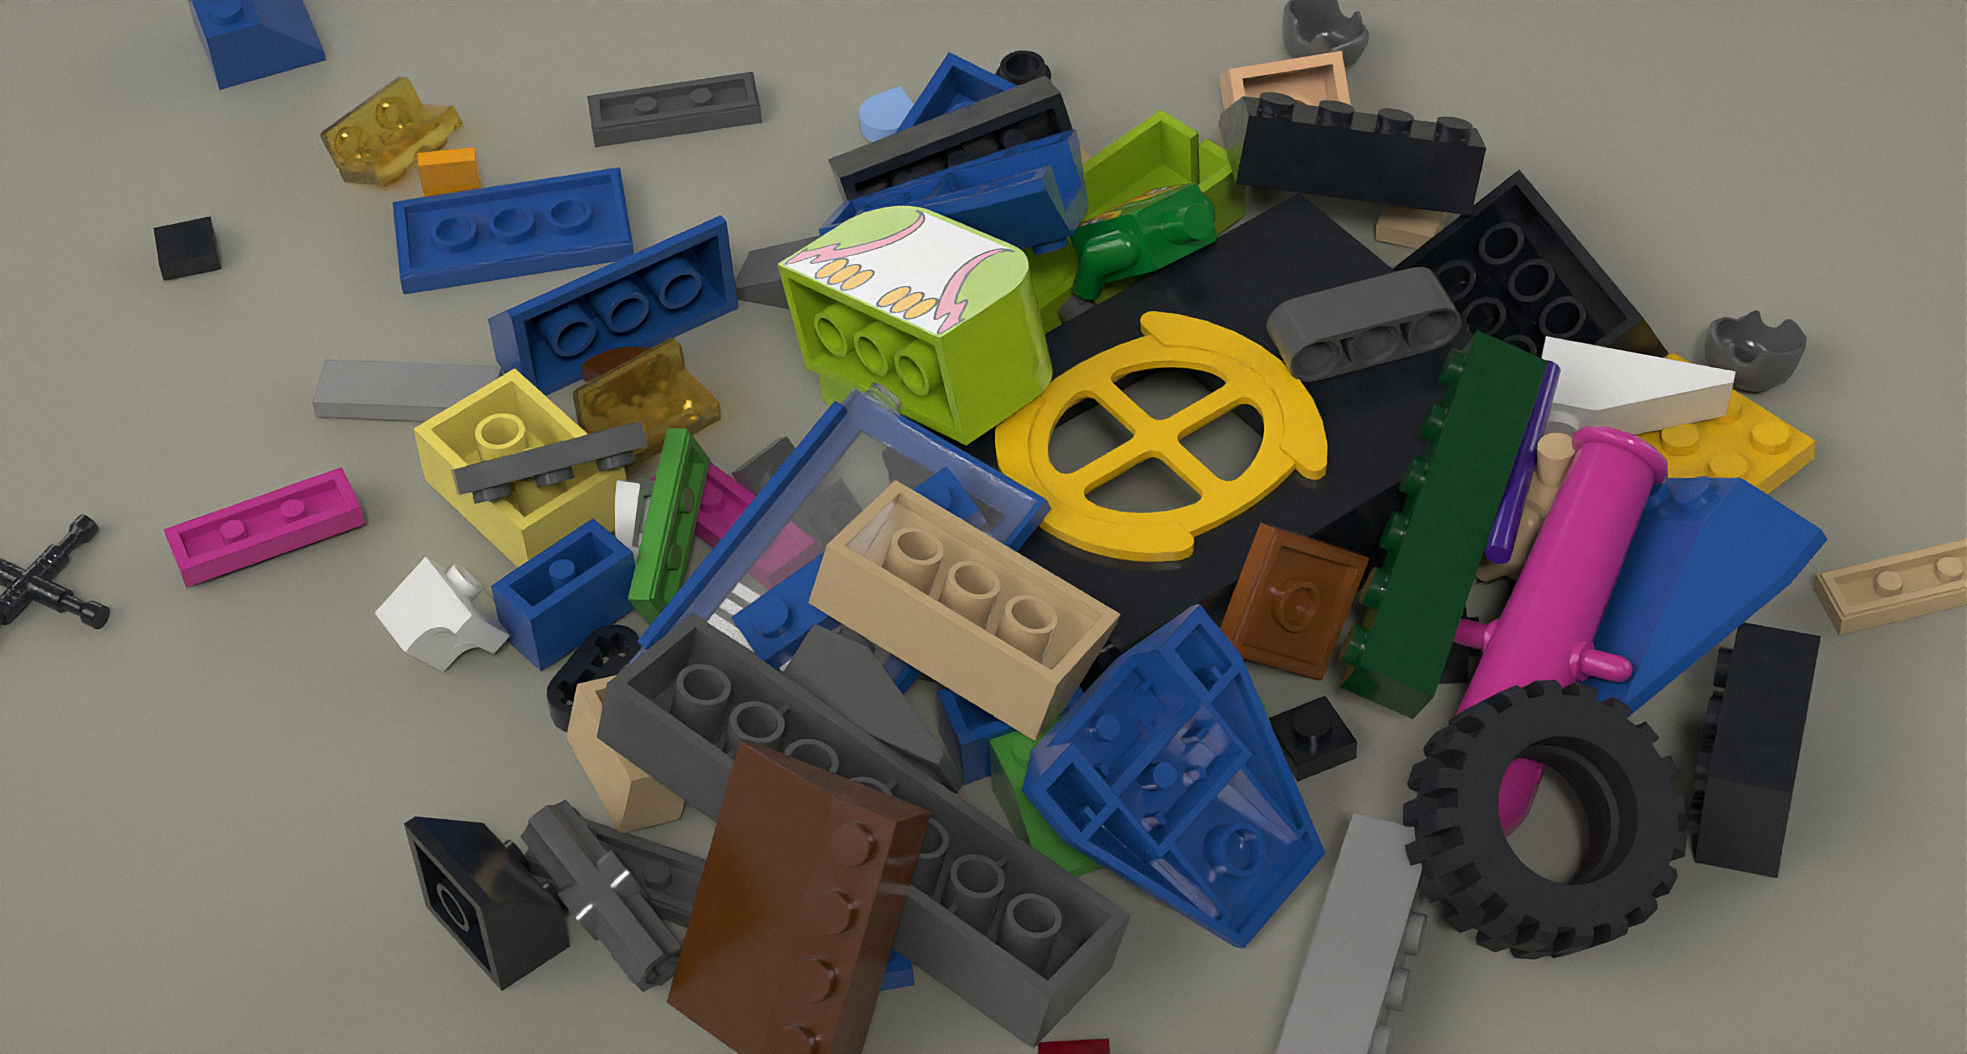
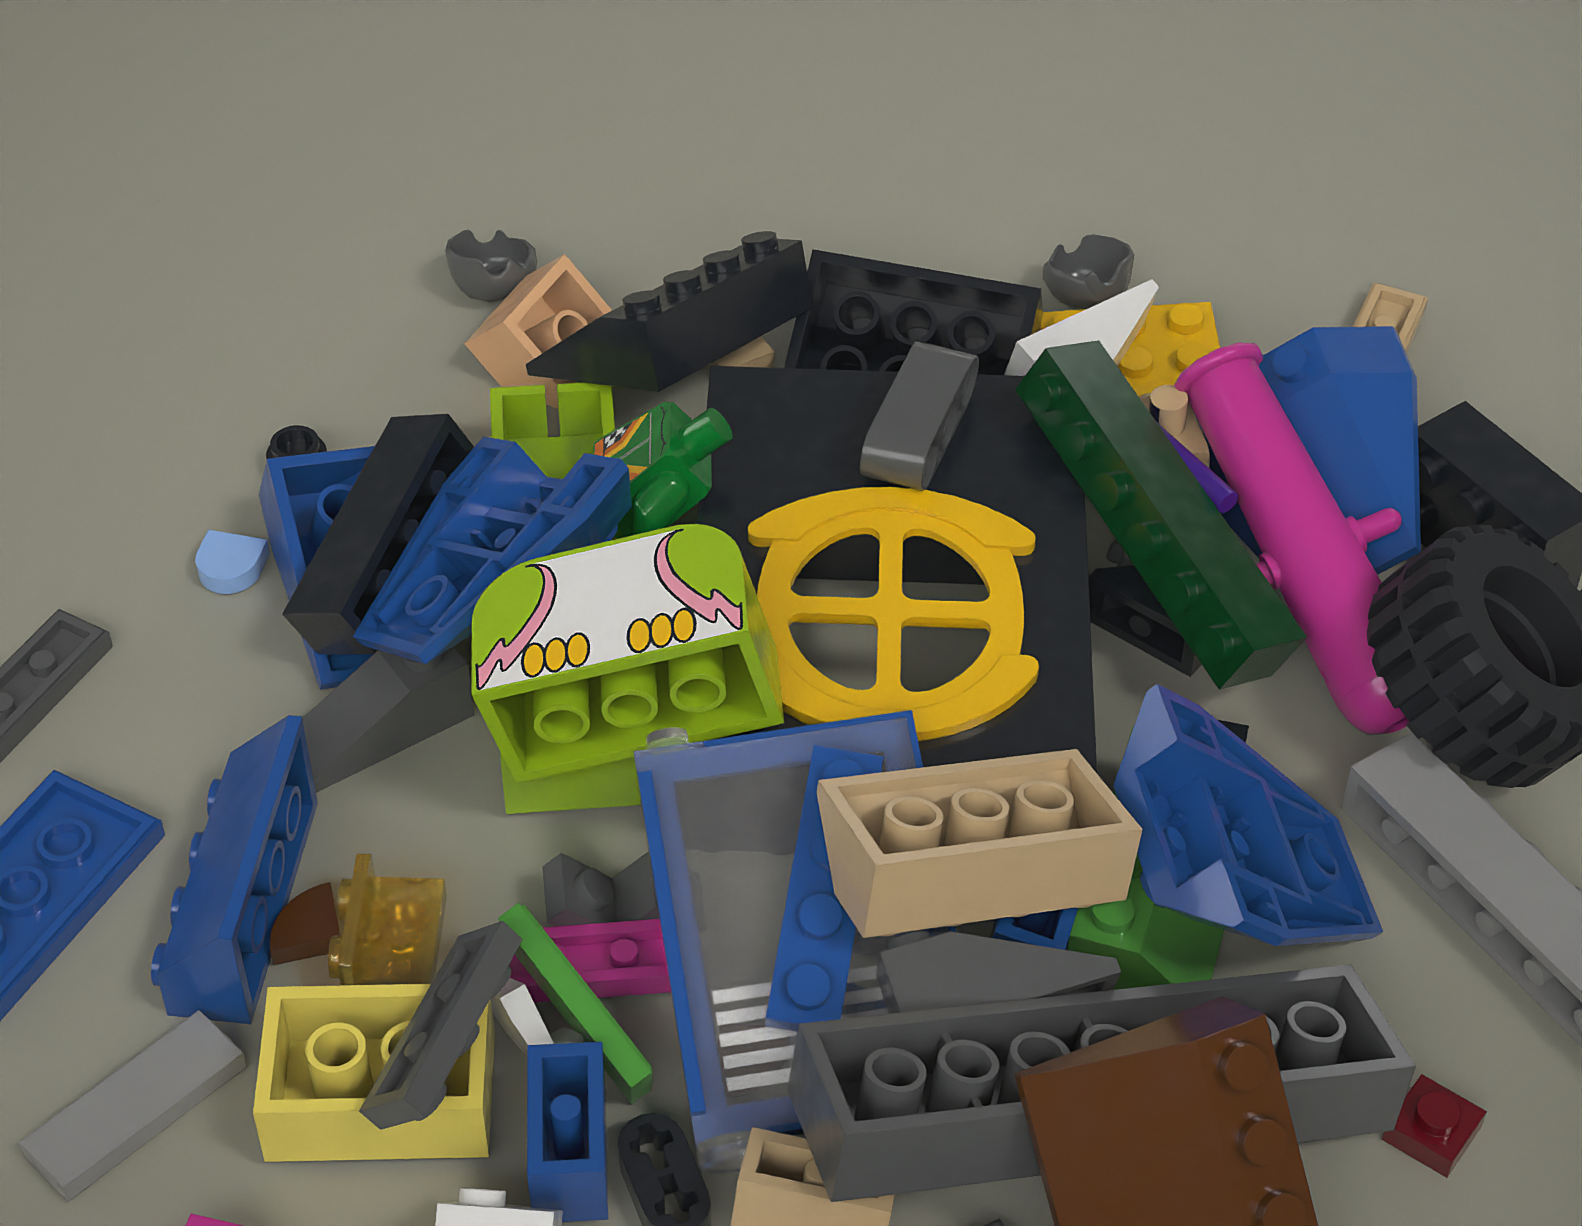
camera: 55 degrees left, 0 degrees up
(1292, 600) = (1115, 654): dark orange tile -> none

